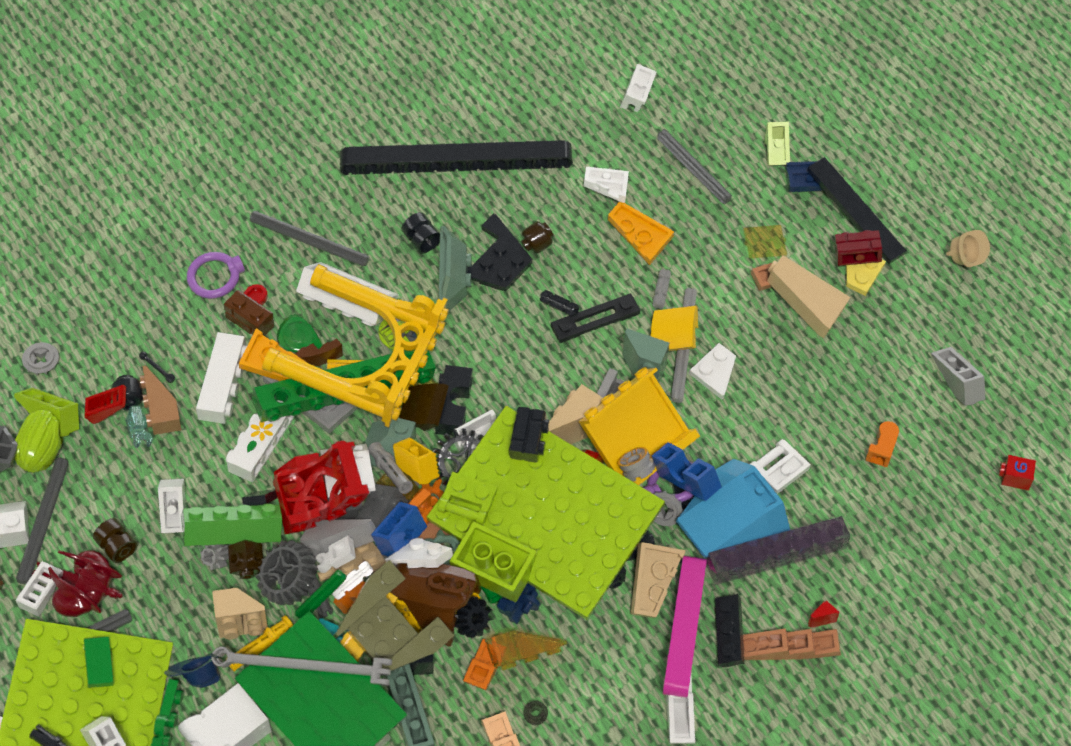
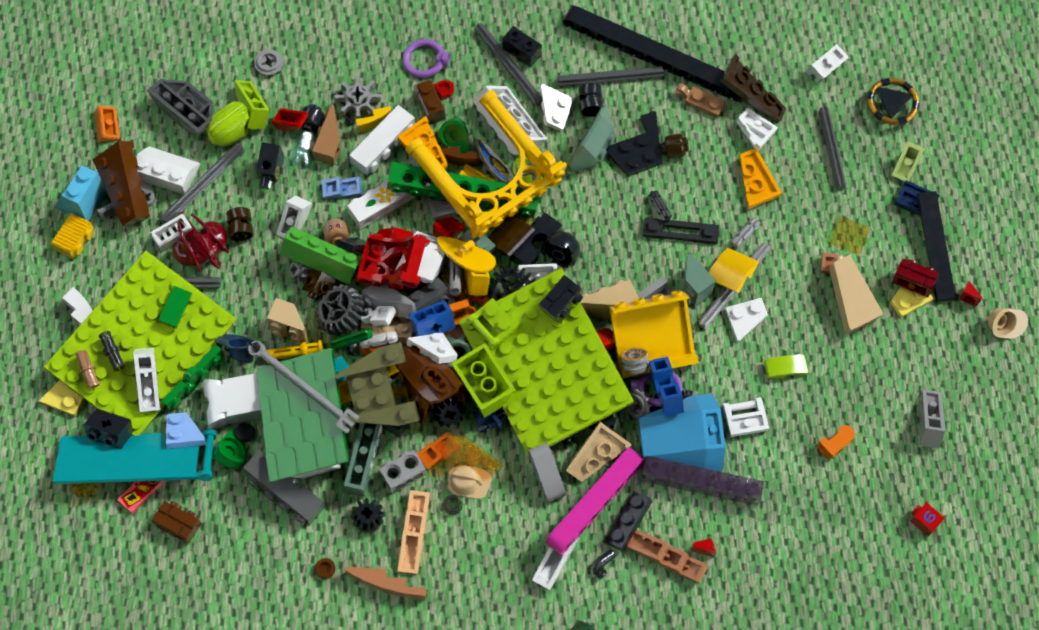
camera: 30 degrees right, 10 degrees up
(111, 461) = (269, 164): none -> black torso
(166, 348) = (350, 96): none -> light grey gear
(195, 367) = (370, 123): none -> yellow slope
(201, 452) = (346, 188): none -> medium blue slope
(228, 494) = (334, 230): none -> medium nougat head
(314, 213) = (522, 46): none -> black brick
(352, 432) = (448, 227): none -> red slope
(359, 342) = (493, 163): none -> shield
(387, 257) = (555, 107): none -> white wing
(394, 444) = (467, 255): none -> yellow shield
(424, 201) = (610, 76): none -> dark grey axle
(464, 707) = (406, 476): none -> light grey brick
(486, 393) = (561, 248): none -> black cylinder
(533, 181) = (701, 100): none -> medium nougat plate
(536, 680) = (469, 481): none -> tan piece
(581, 146) = (751, 90): none -> dark brown wing
(616, 624) = (547, 472): none -> light grey beam
(725, 94) = (893, 101): none -> piece
(728, 687) = (601, 562): none -> black arm
(786, 396) = (785, 365): none -> lime slope
(918, 240) = (970, 295): none -> red slope

